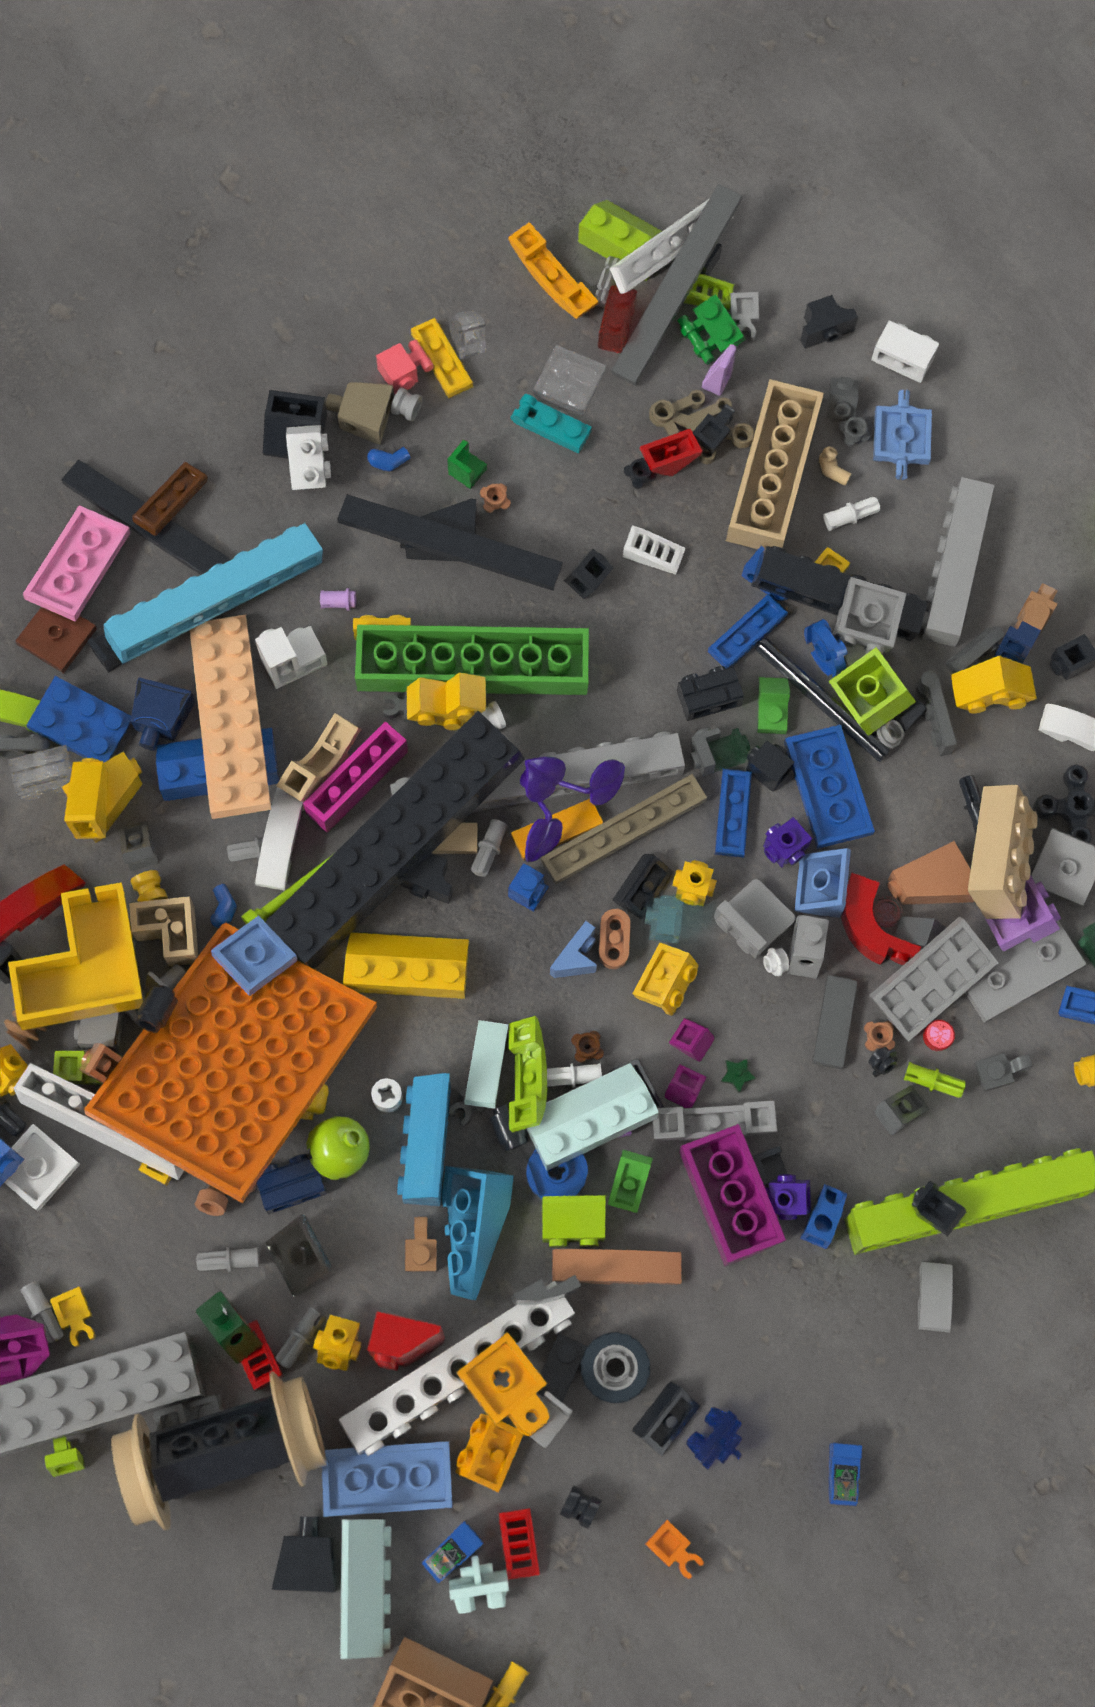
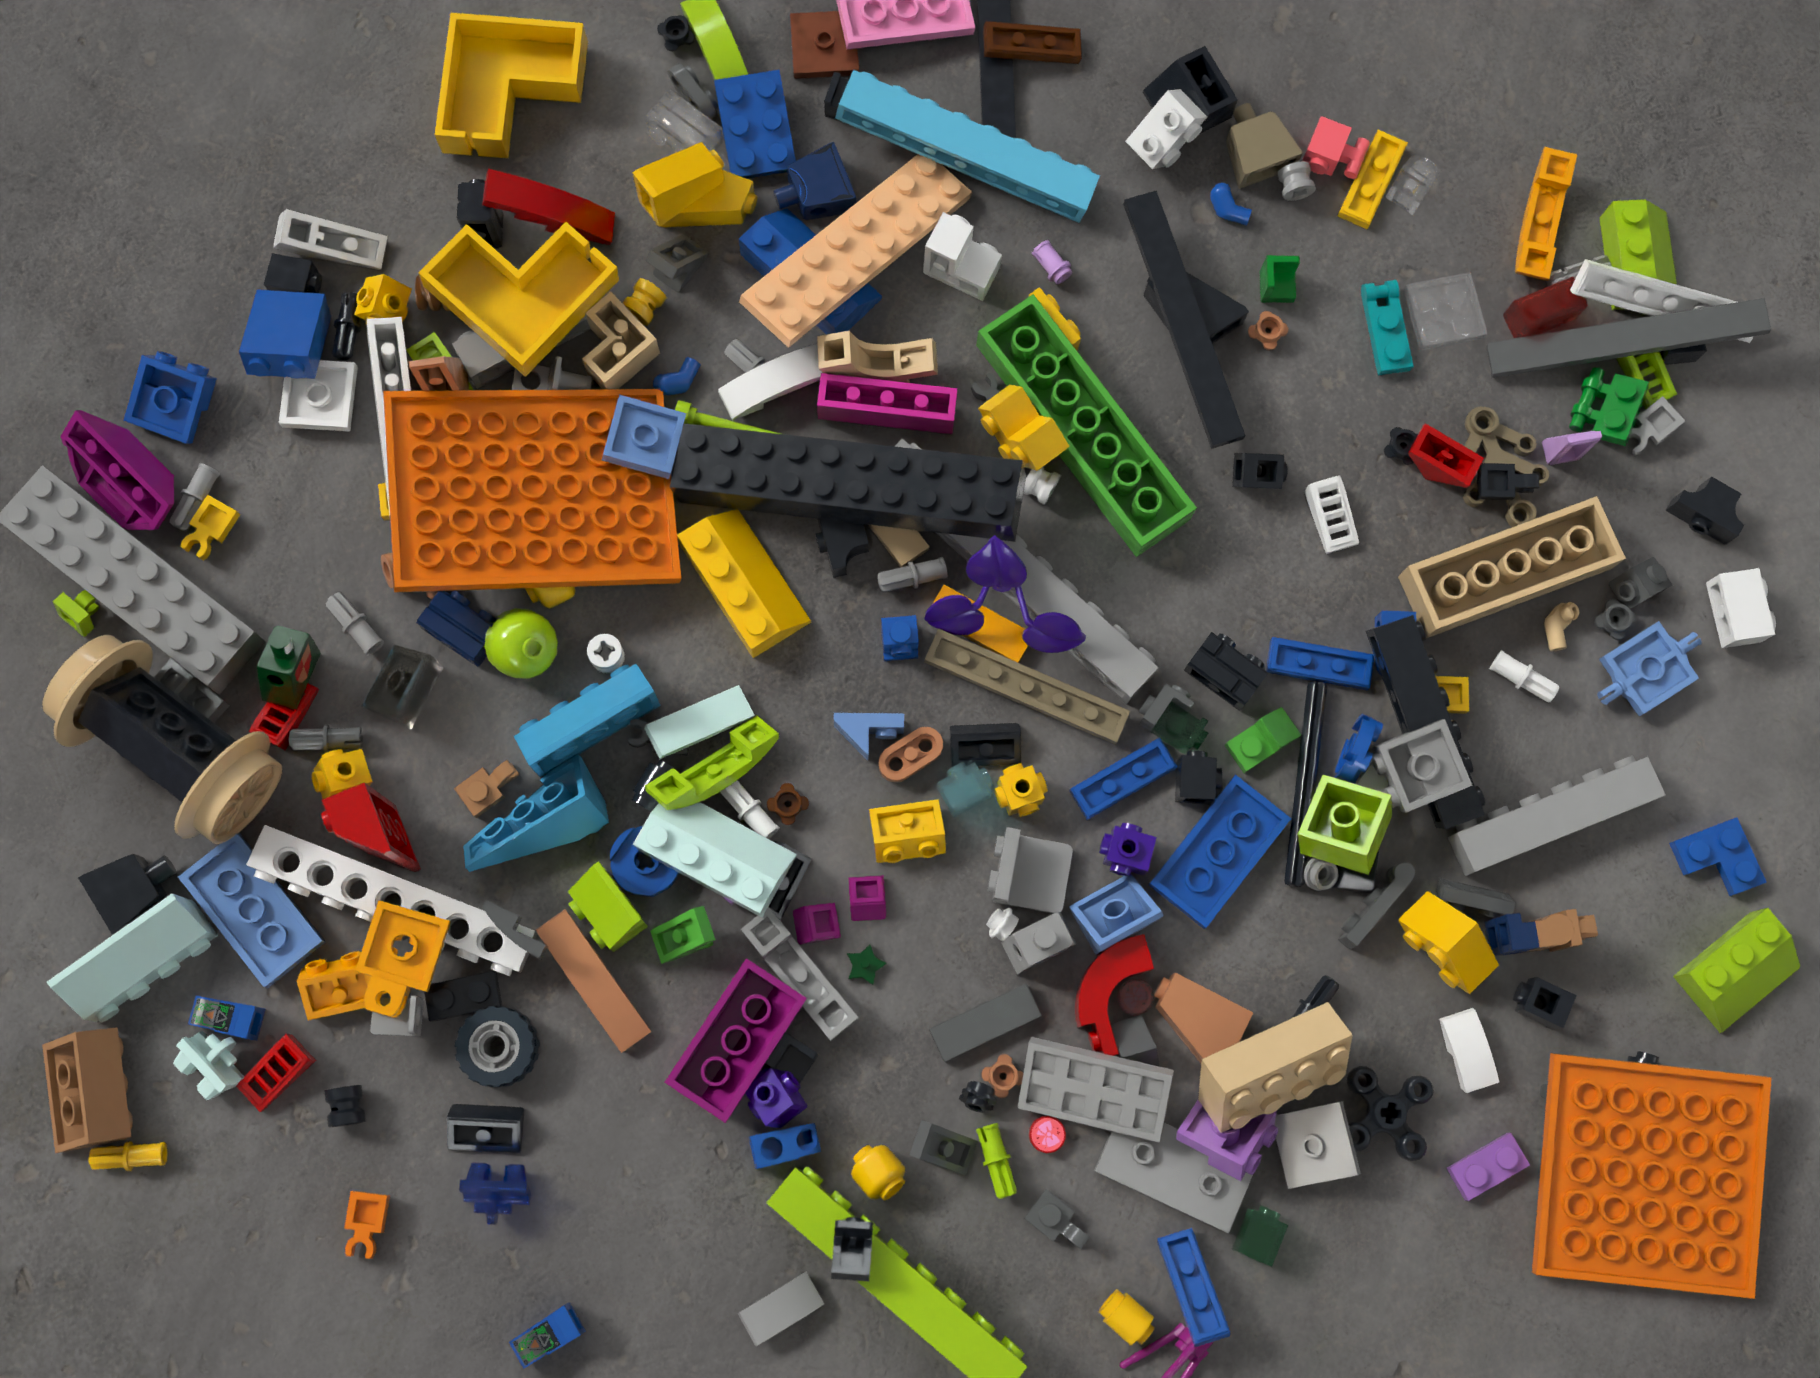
camera: 50 degrees right, 5 degrees up
(156, 1008) = (525, 386): black brick -> none
(888, 1164) = (878, 1172): none -> yellow head
(1052, 477) = (1727, 849): none -> blue plate

